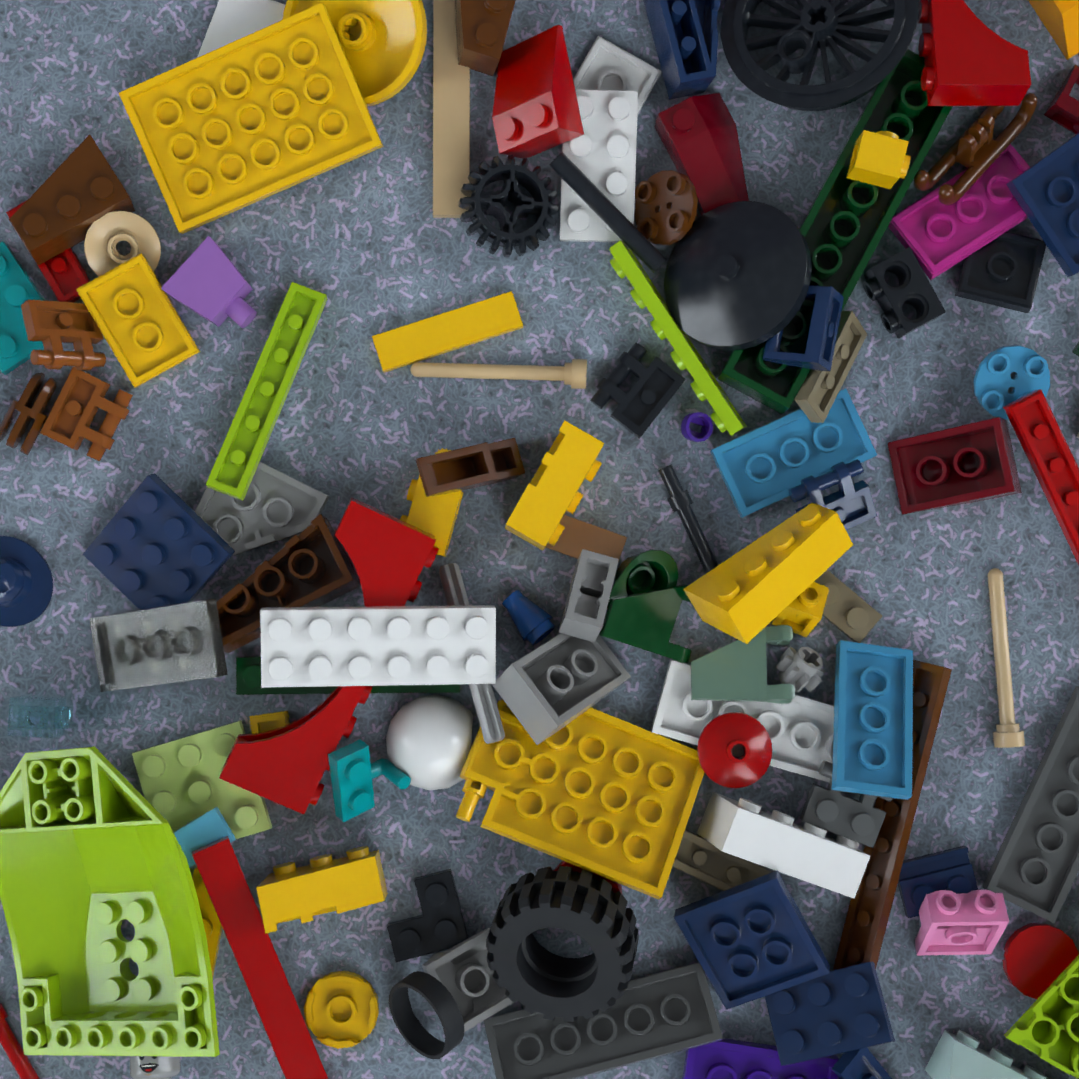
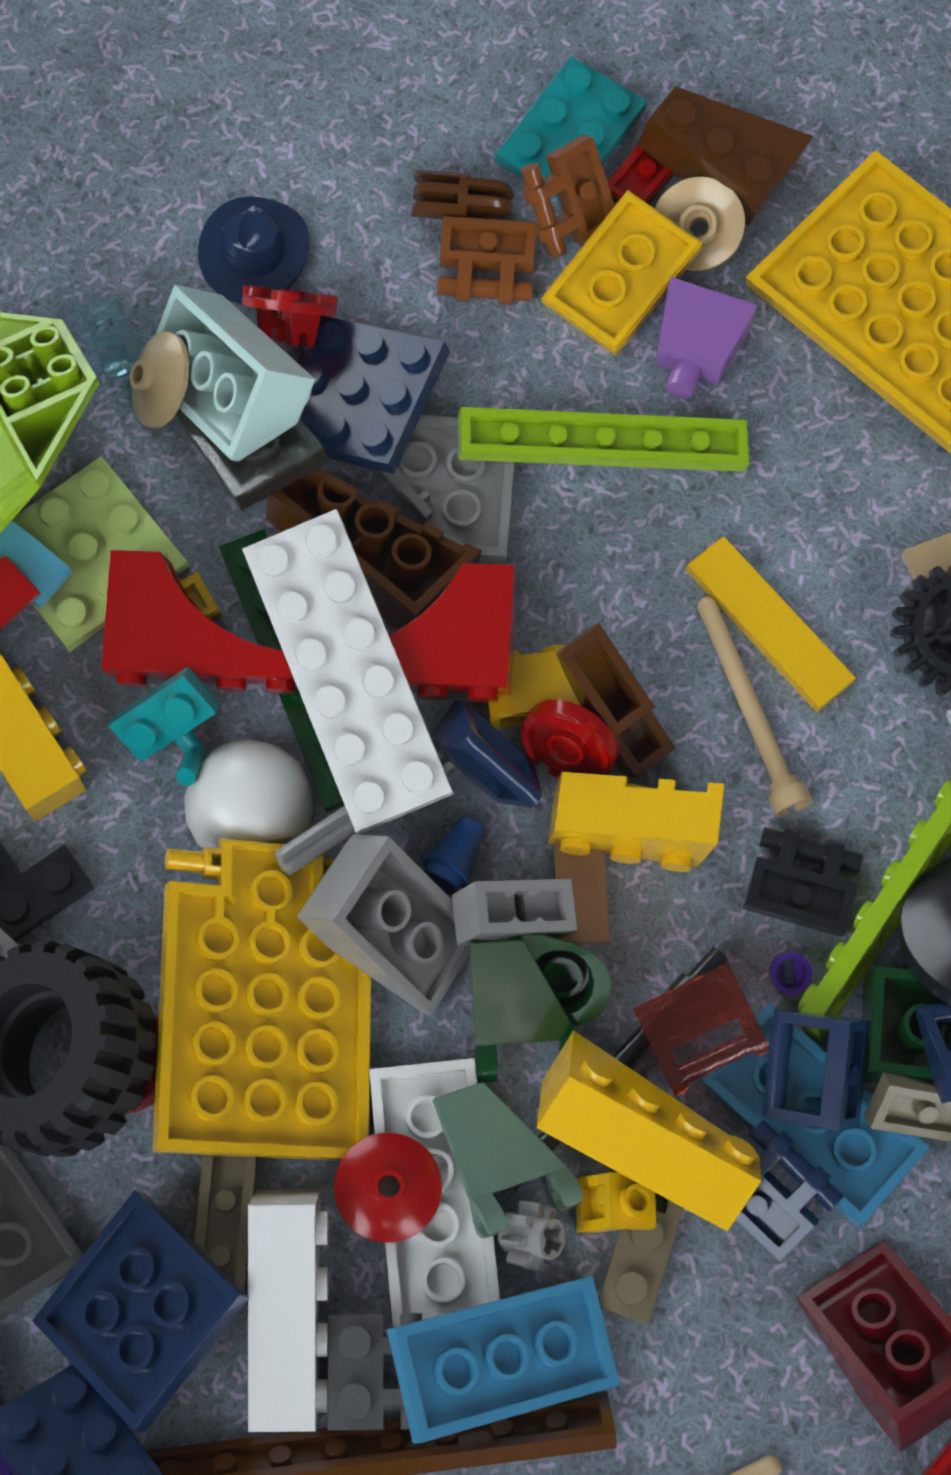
camera: 70 degrees right, 15 degrees down
(74, 576) = (289, 312): none -> red plate
(91, 691) = (159, 379): none -> tan dish
(109, 643) = (239, 379): none -> light aqua slope
(471, 568) = (486, 757): none -> dark blue tile
(483, 508) = (569, 739): none -> red tile
(702, 504) = (696, 1011): none -> clear red plate
(782, 424) = (842, 1074): none -> dark blue tile

